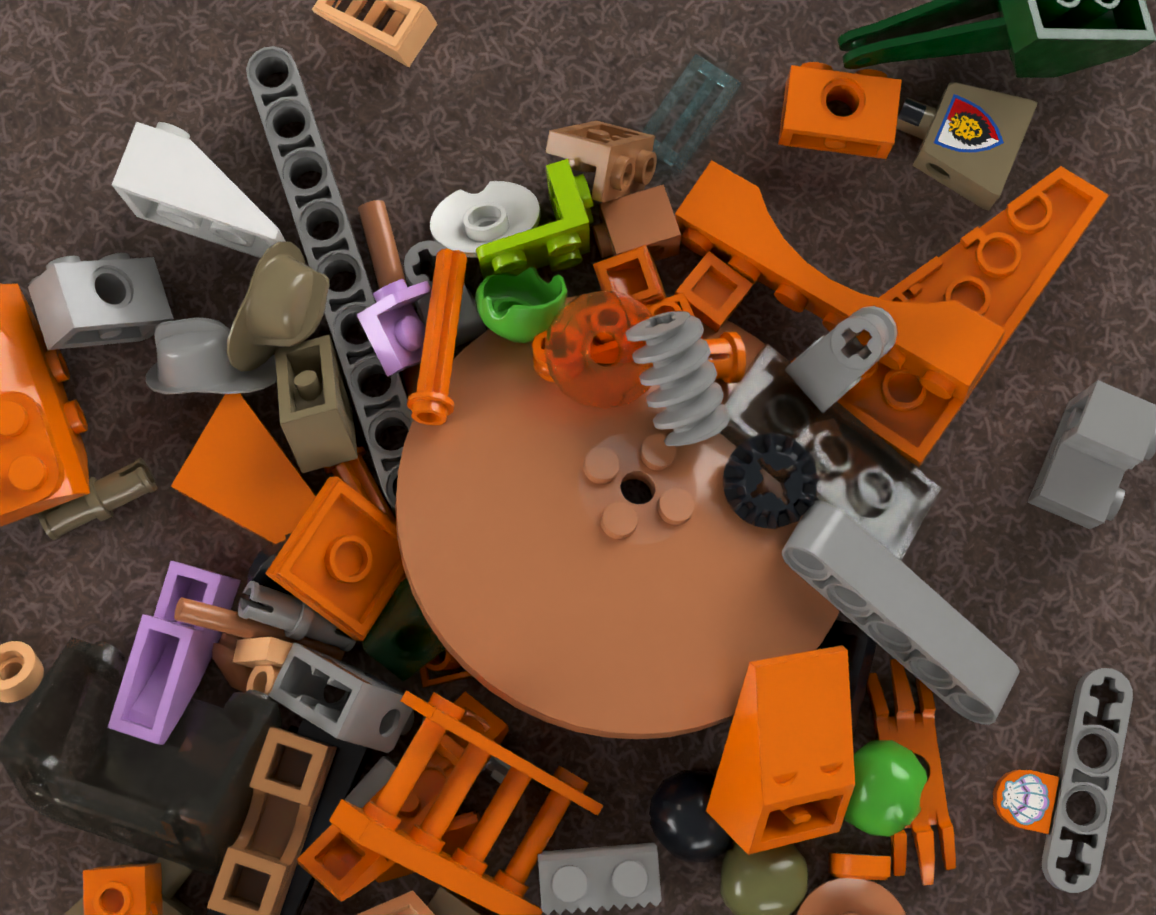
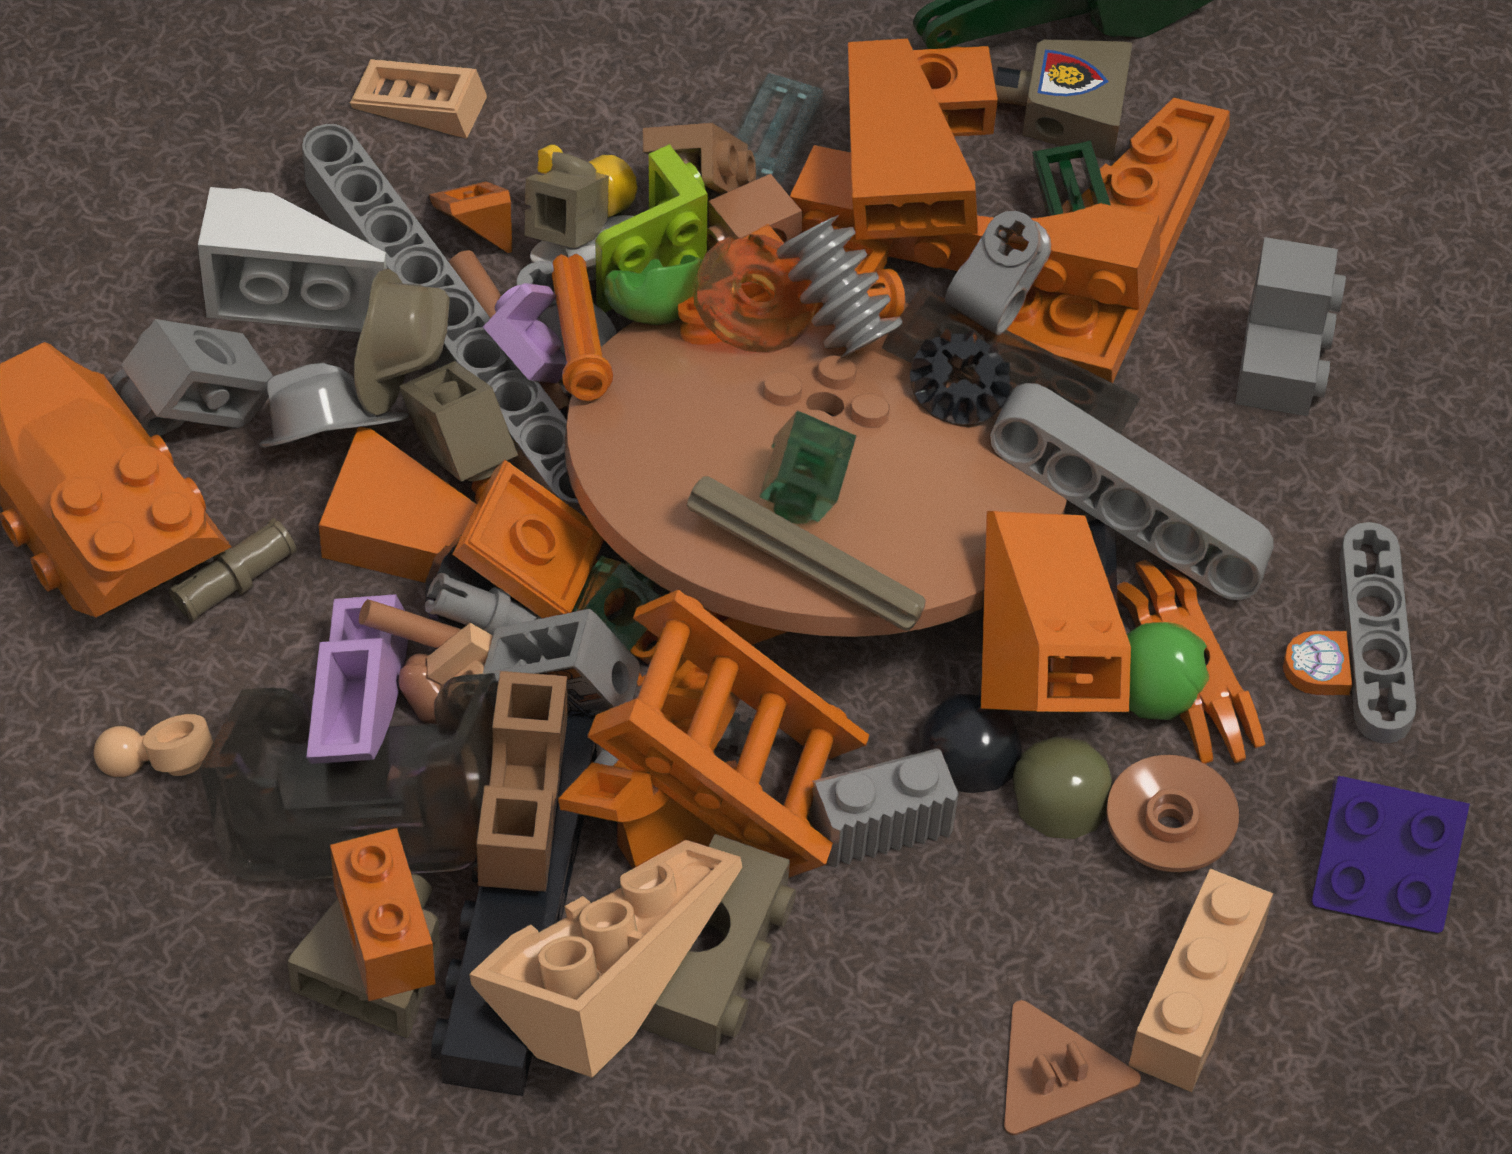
camera: 15 degrees left, 25 degrees down
(389, 158) = (481, 209): none -> orange slope
(479, 176) = (575, 196): none -> dark tan piece
(572, 668) = (806, 553): none -> dark tan axle
(612, 587) = (806, 468): none -> clear green brick
(782, 206) = (903, 153): none -> orange slope
(859, 866) = (1161, 738): orange tile -> none
(939, 214) = (1062, 156): none -> dark green tile

